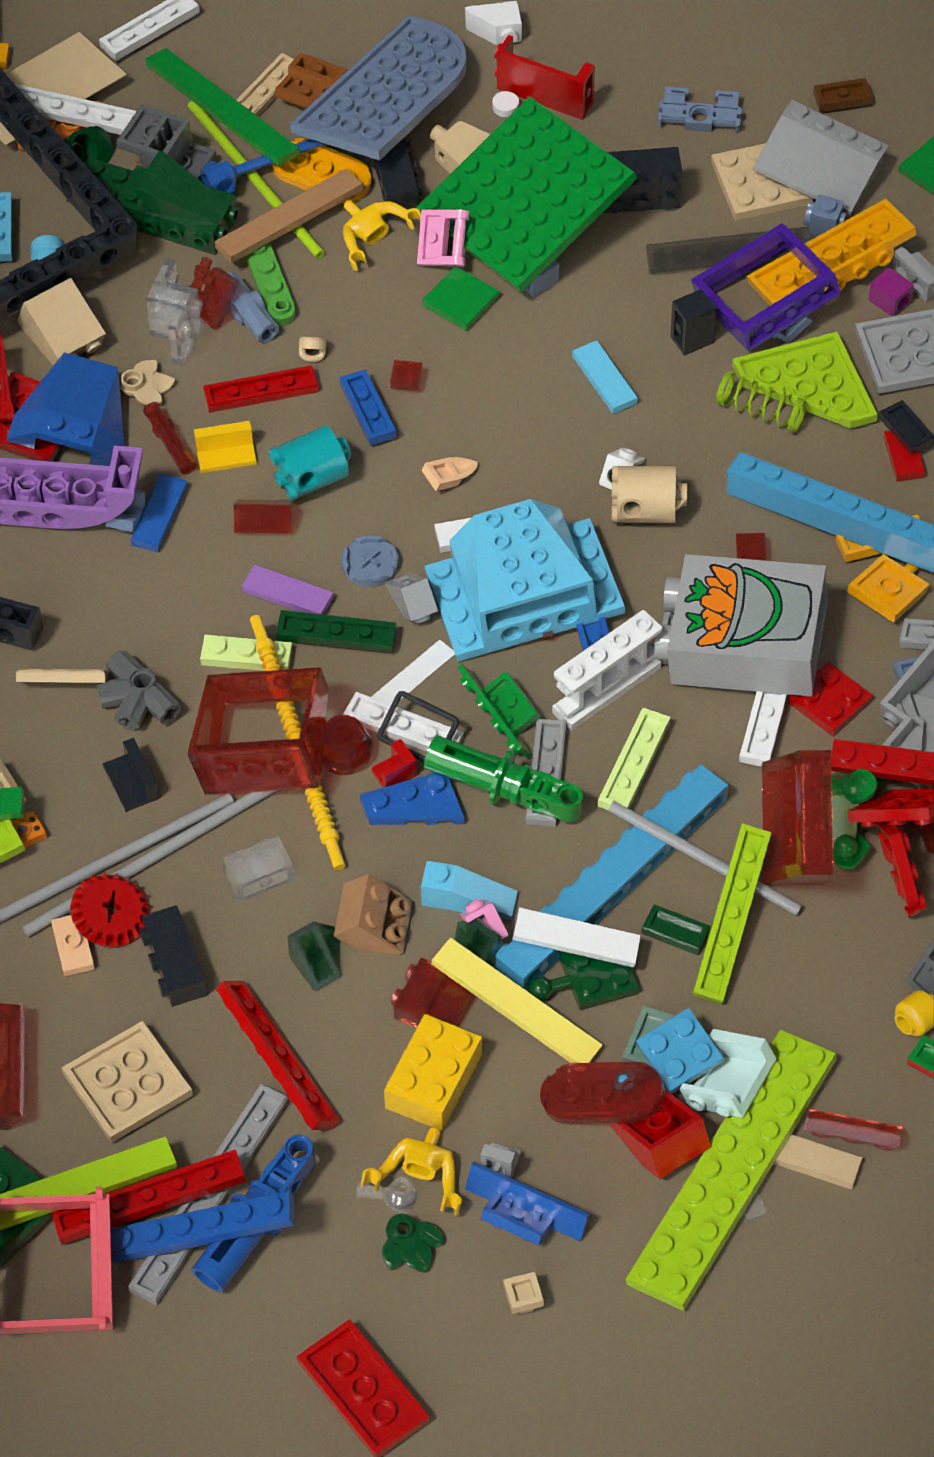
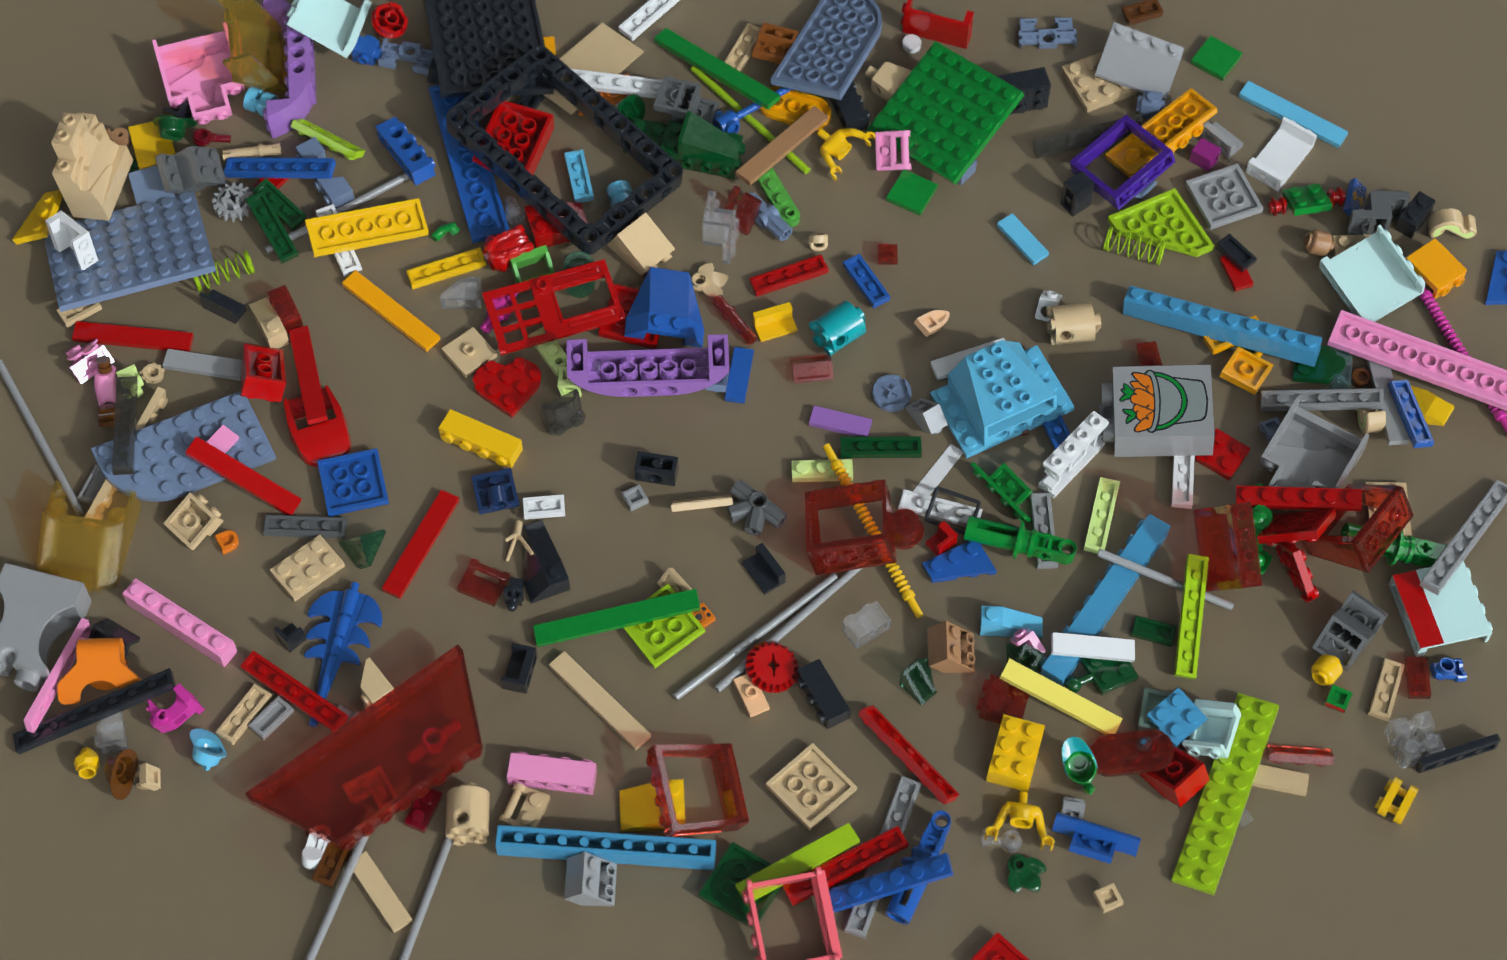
camera: 10 degrees left, 5 degrees up
(521, 1096) = (1079, 763): none -> green hair

